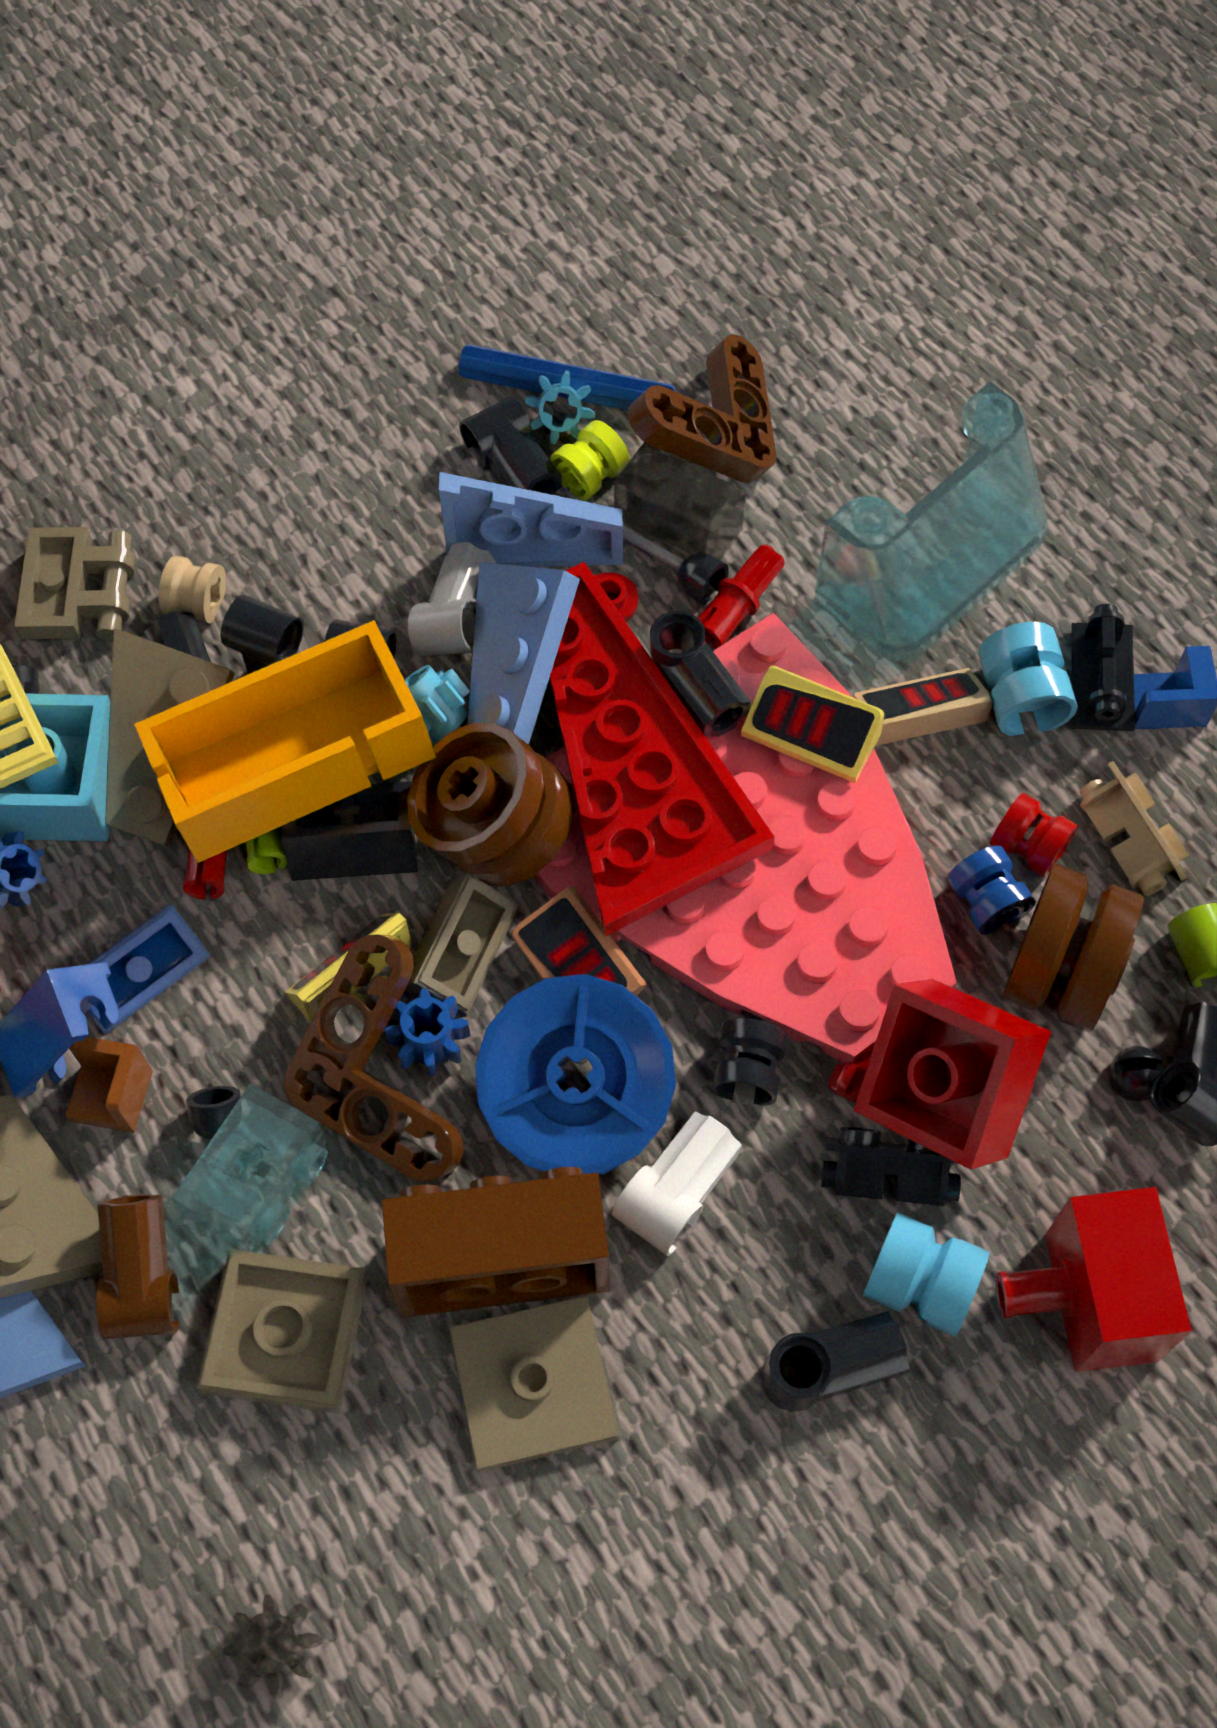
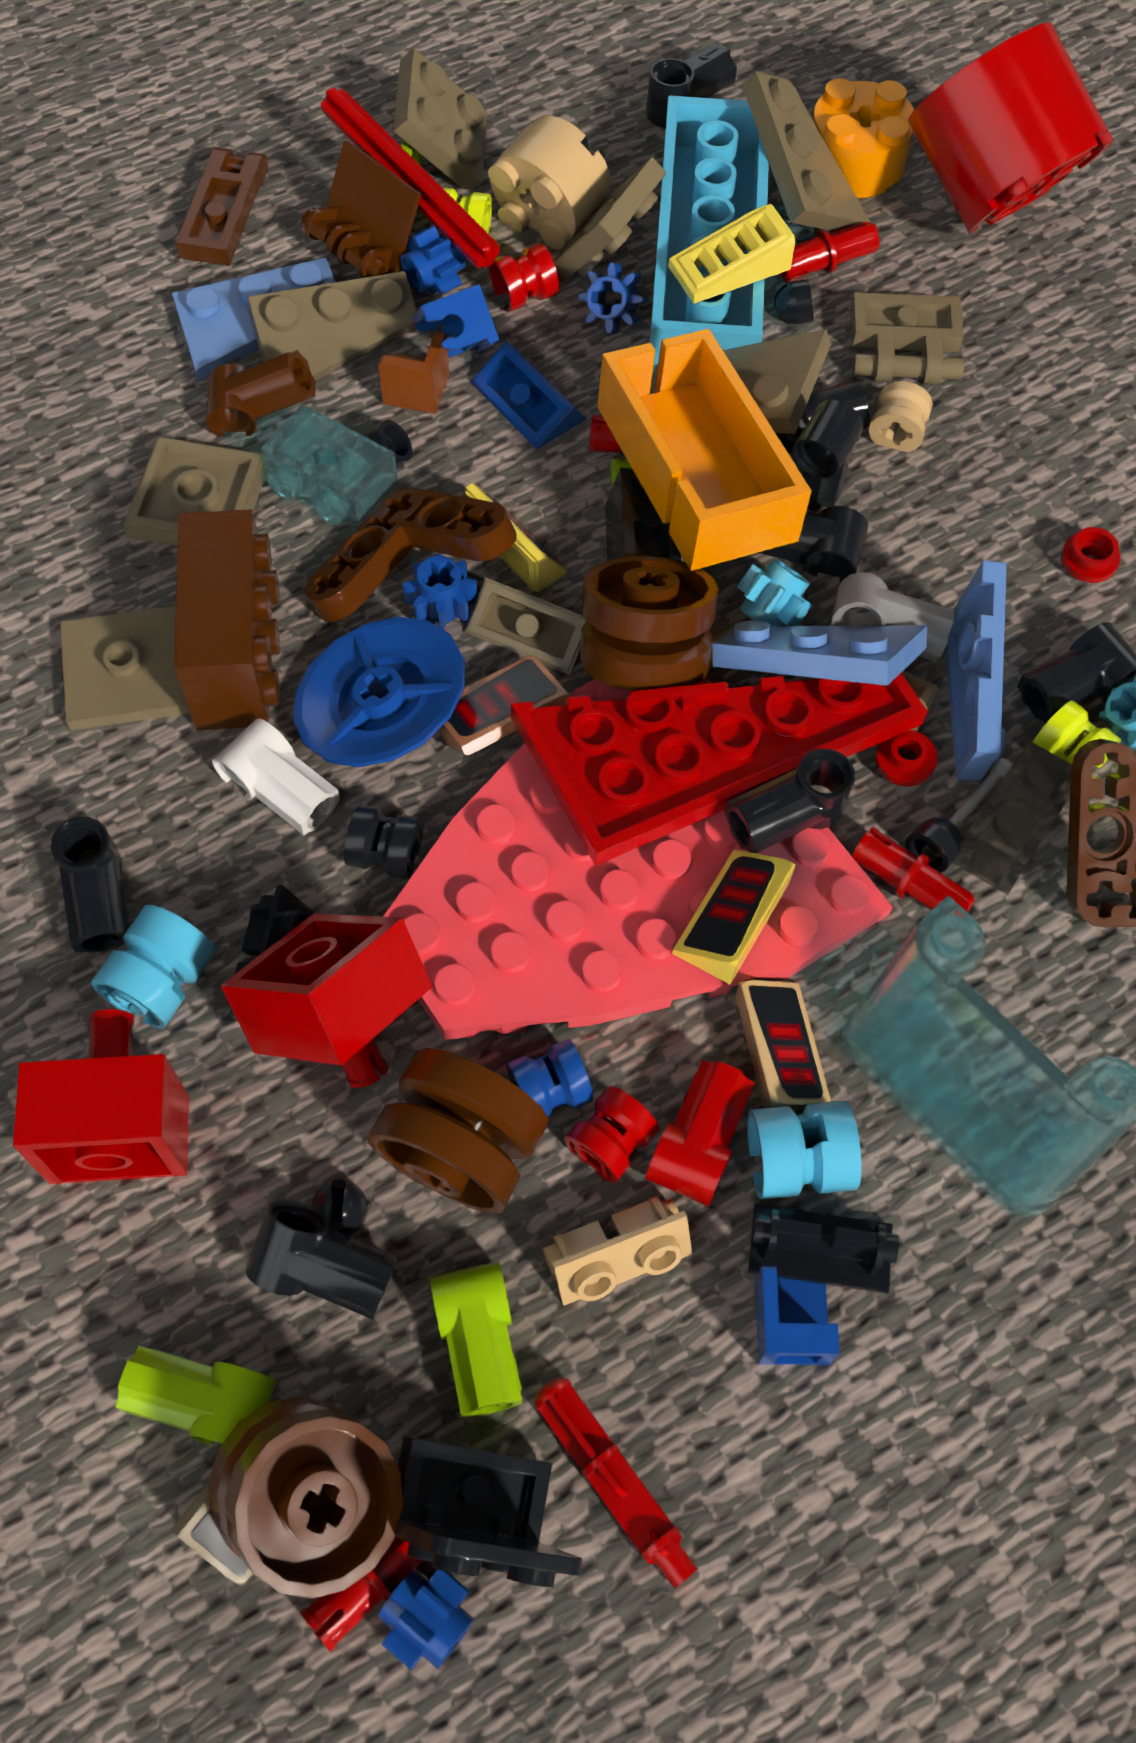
camera: 90 degrees right, 0 degrees up
(366, 425) = (1095, 542): none -> red plate
(1039, 766) = (696, 1146): none -> red piece

